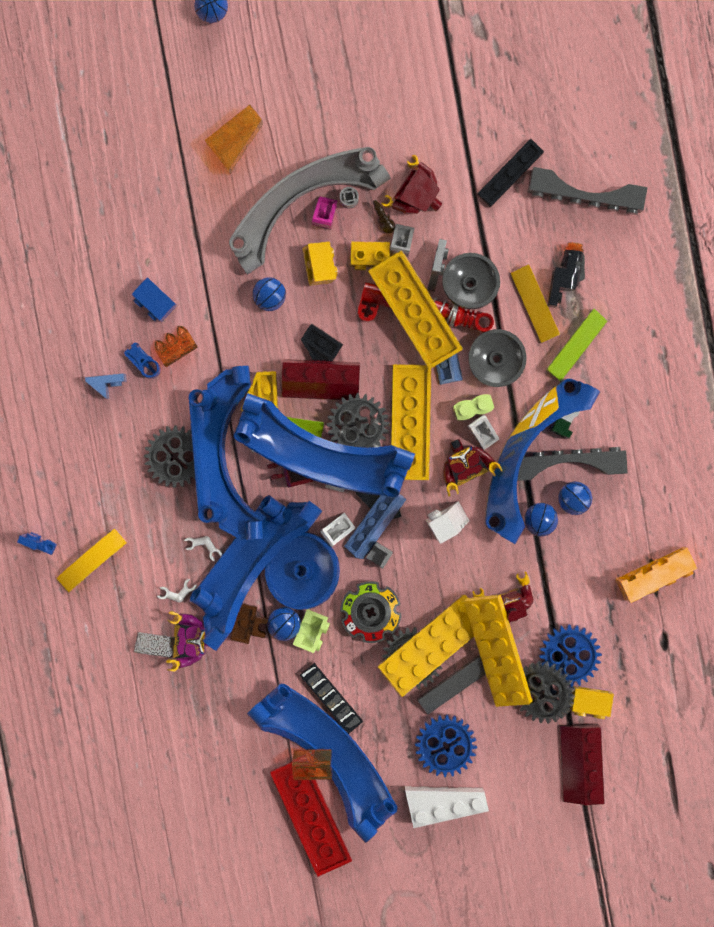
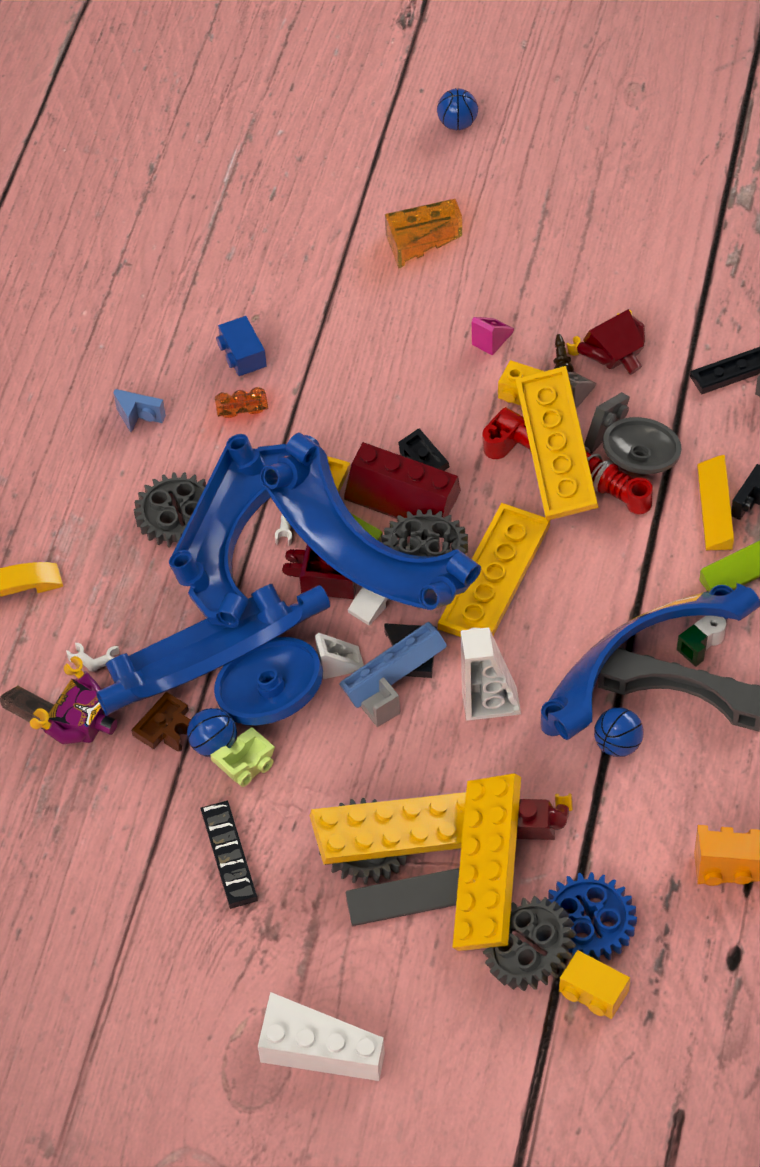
camera: 25 degrees right, 35 degrees down
(141, 359) = (193, 403): blue piece -> none
(204, 541) = (159, 613): white arm -> none
(269, 294) = (382, 381): blue piece -> none
(312, 764) = (156, 916): clear orange panel -> none
(312, 820) = (121, 991): red plate -> none
(319, 263) = (460, 373): yellow brick -> none
(336, 169) = (520, 288): light grey panel -> none
(351, 200) = (529, 325): light grey wheel -> none
(357, 780) = (203, 931): blue panel -> none
(375, 626) = (335, 765): piece -> none
(437, 730) = (358, 992): blue gear -> none
(449, 370) = (573, 534): medium blue slope -> none
(466, 465) = (545, 641): torso -> none
(468, 408) = (583, 581): yellowish green brick -> none
(483, 432) = (584, 610): white slope -> none
(511, 355) = (641, 525): dark grey dish -> none
(575, 498) = (676, 723): blue piece -> none
(582, 764) = (546, 1068): dark red slope -> none

